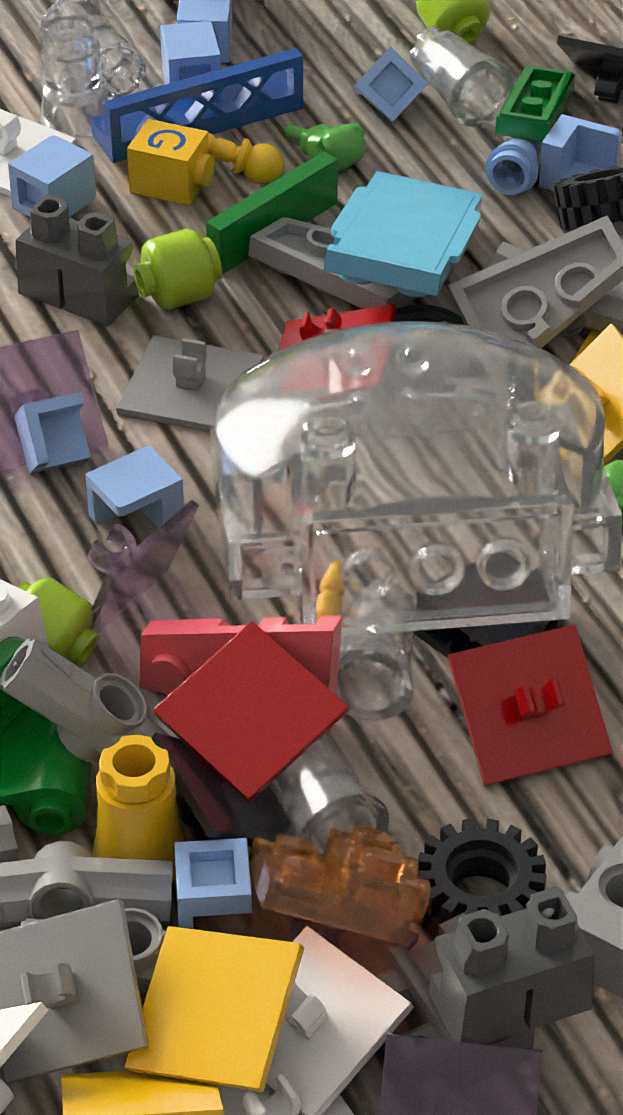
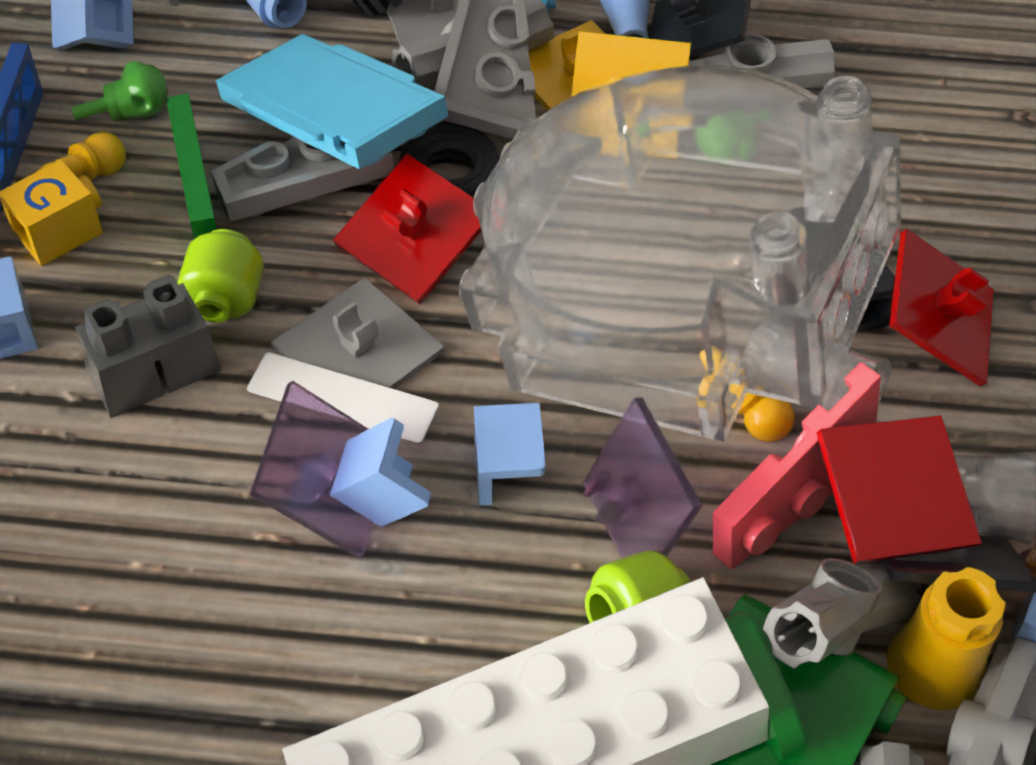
camera: 60 degrees left, 10 degrees up
(129, 395) = (355, 397): none -> white sticker

